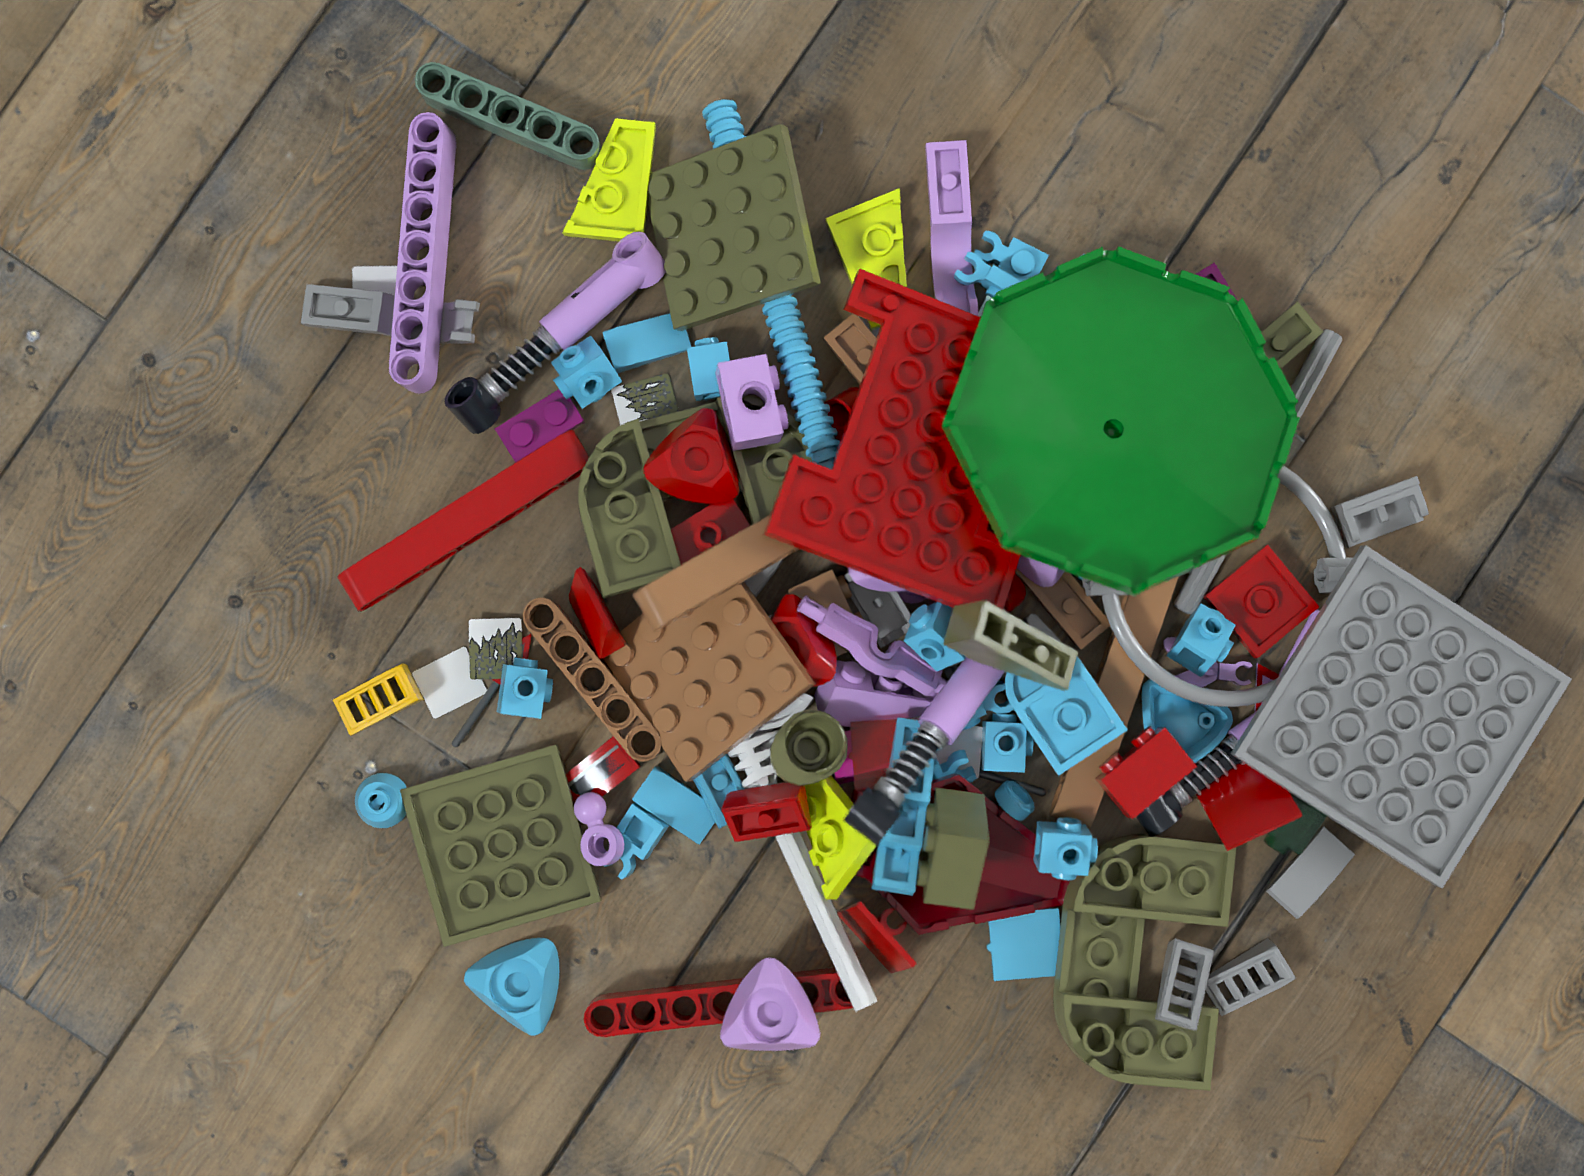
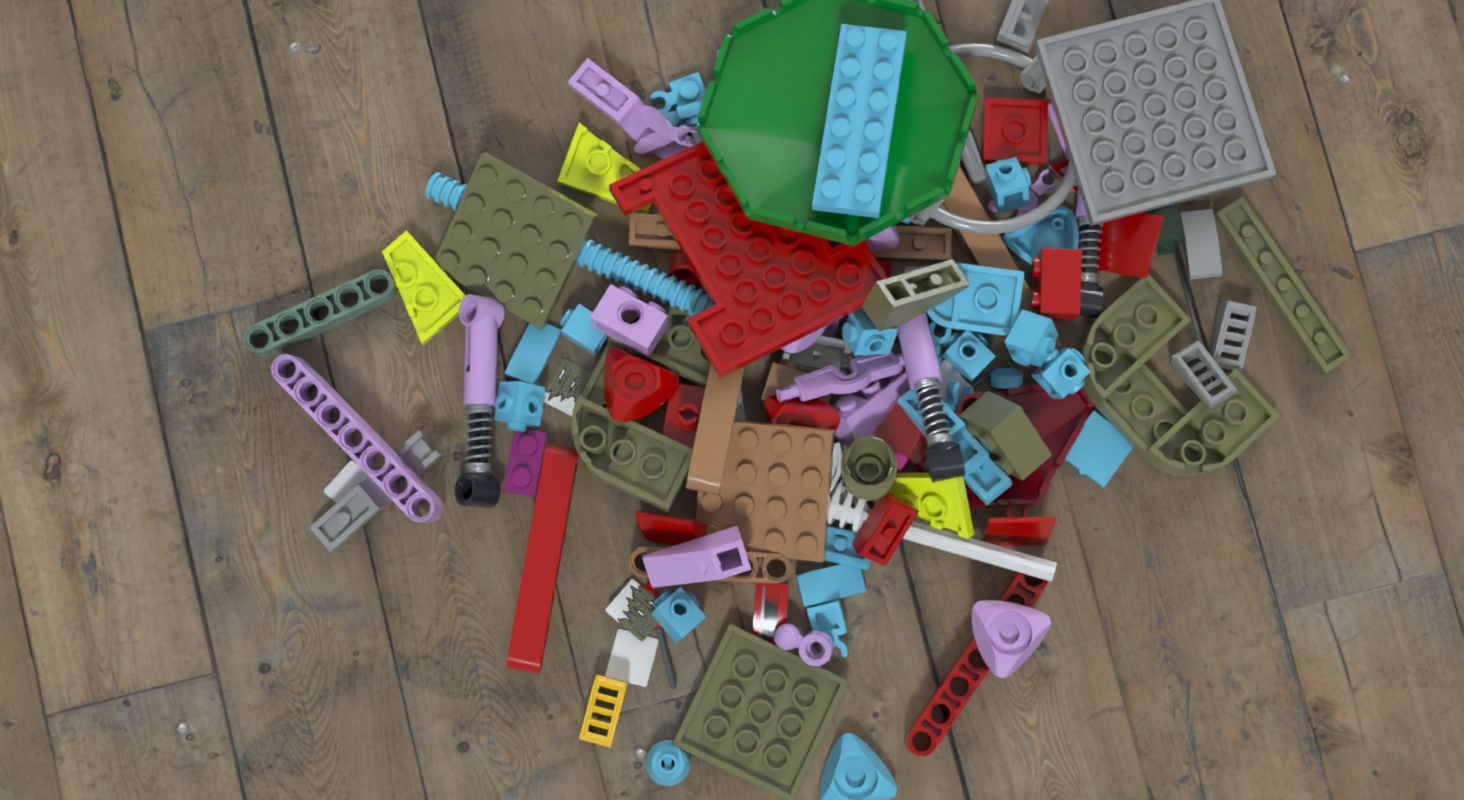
camera: 55 degrees left, 5 degrees down
(584, 667) = (698, 560): none -> lavender slope
(958, 275) = (663, 134): none -> lavender piece
(1068, 793) = (1031, 339): none -> medium azure brick
(1128, 447) = (859, 121): none -> medium azure plate
(1339, 985) = (1282, 286): none -> olive plate

